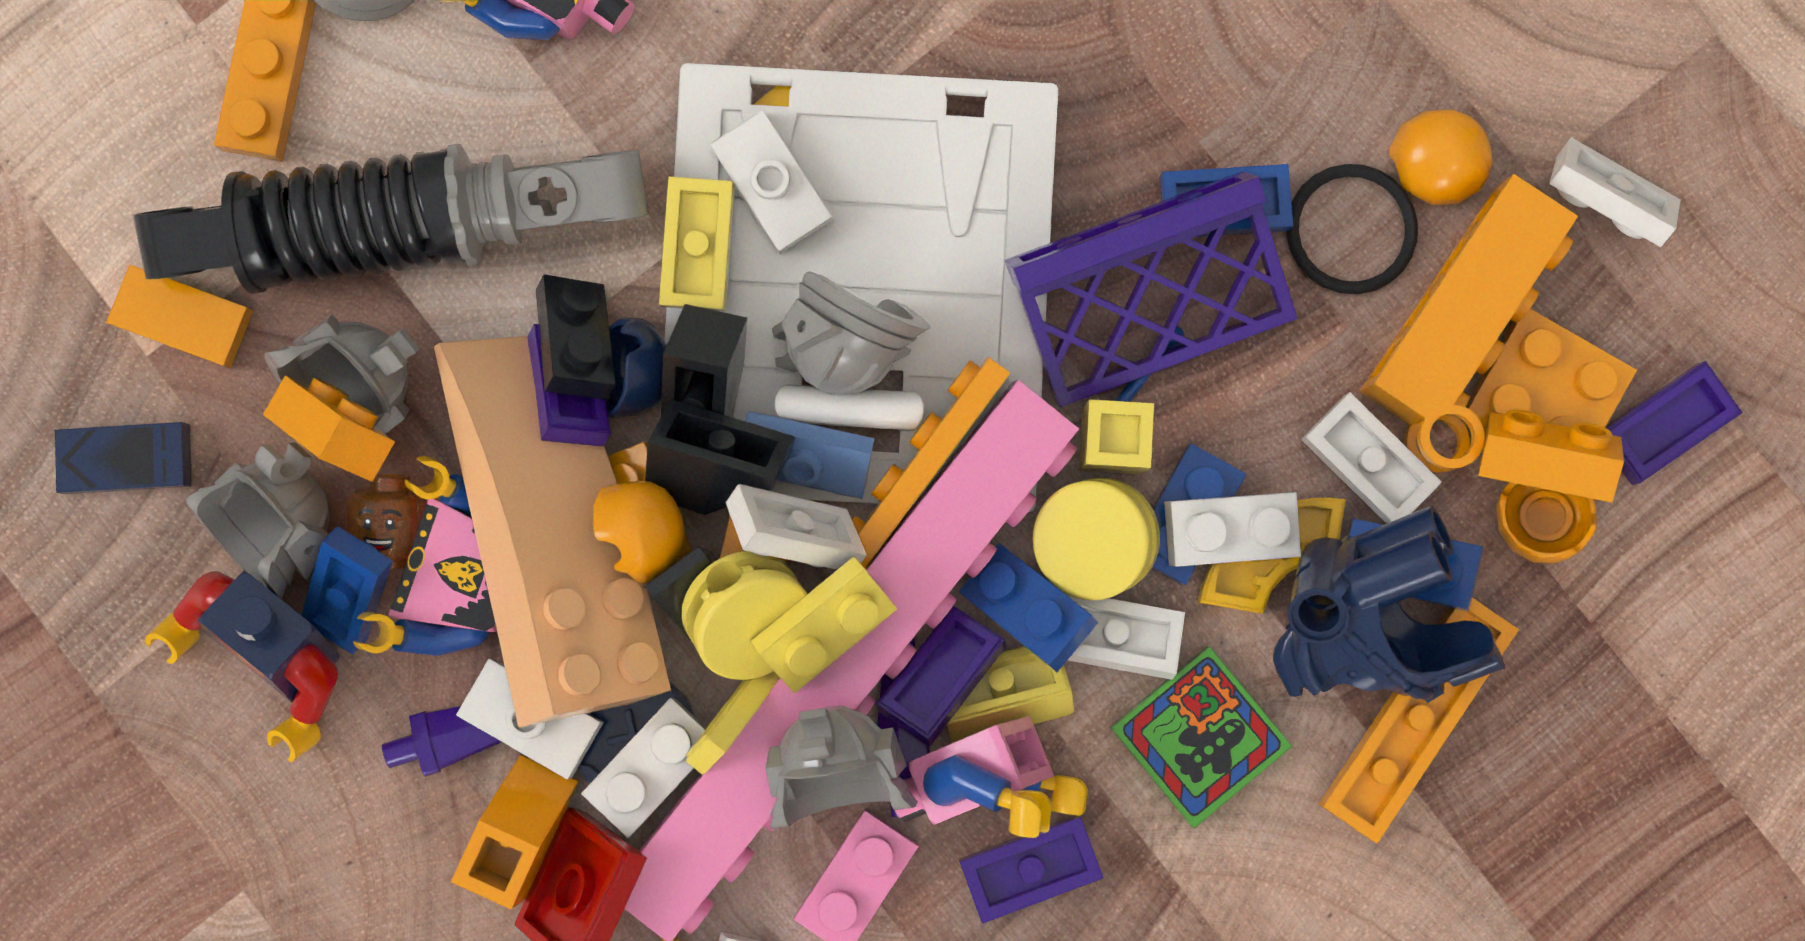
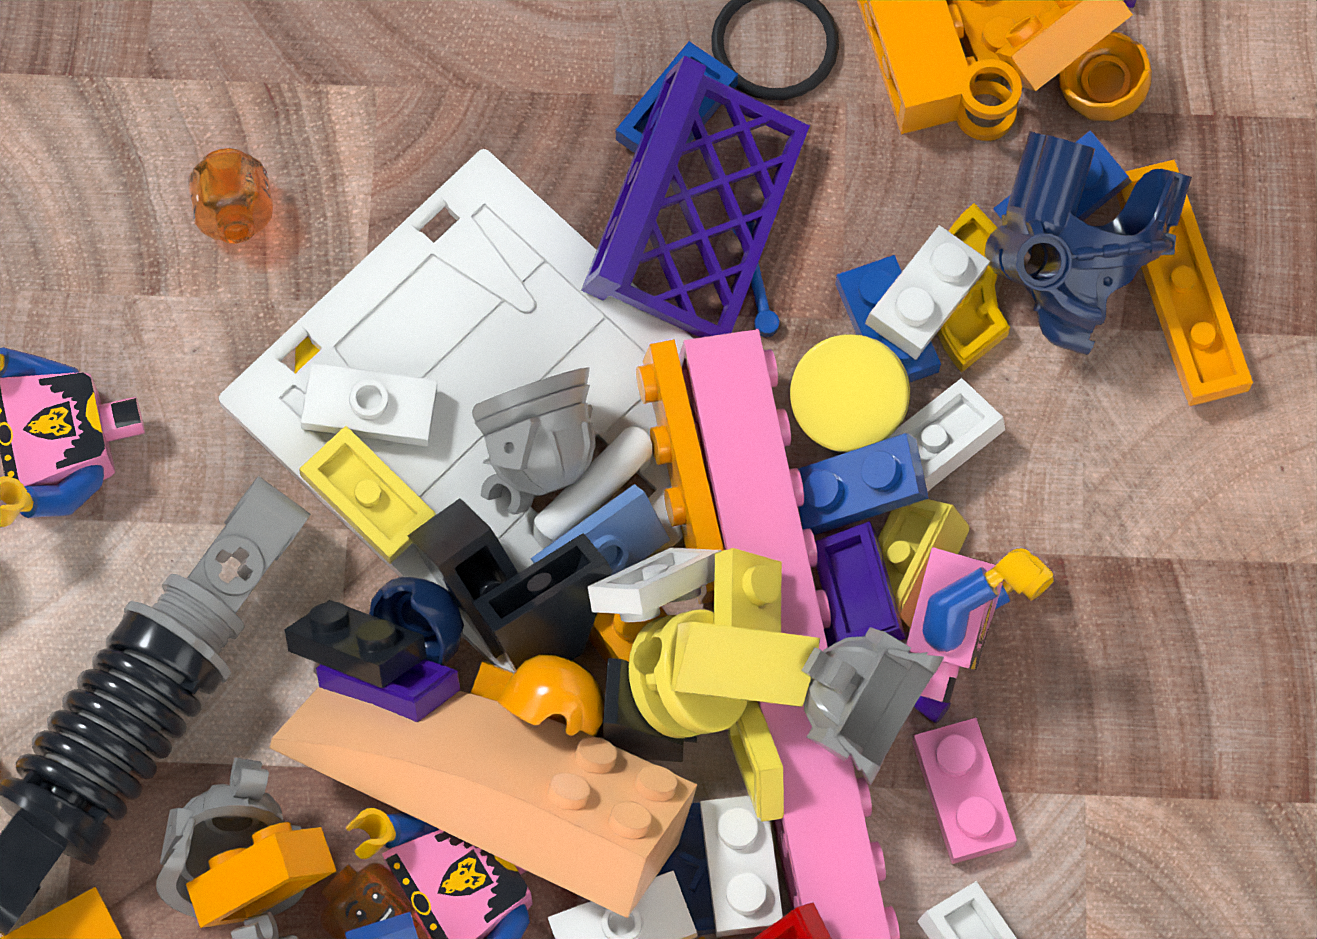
camera: 50 degrees left, 15 degrees down
(772, 657) = (742, 663): none -> light yellow slope
(1030, 869) = (1063, 648): dark purple plate -> none
(1116, 437) = (788, 316): light yellow panel -> none
(1200, 737) = (1066, 448): tile -> none
(1370, 459) = (958, 161): white plate -> none

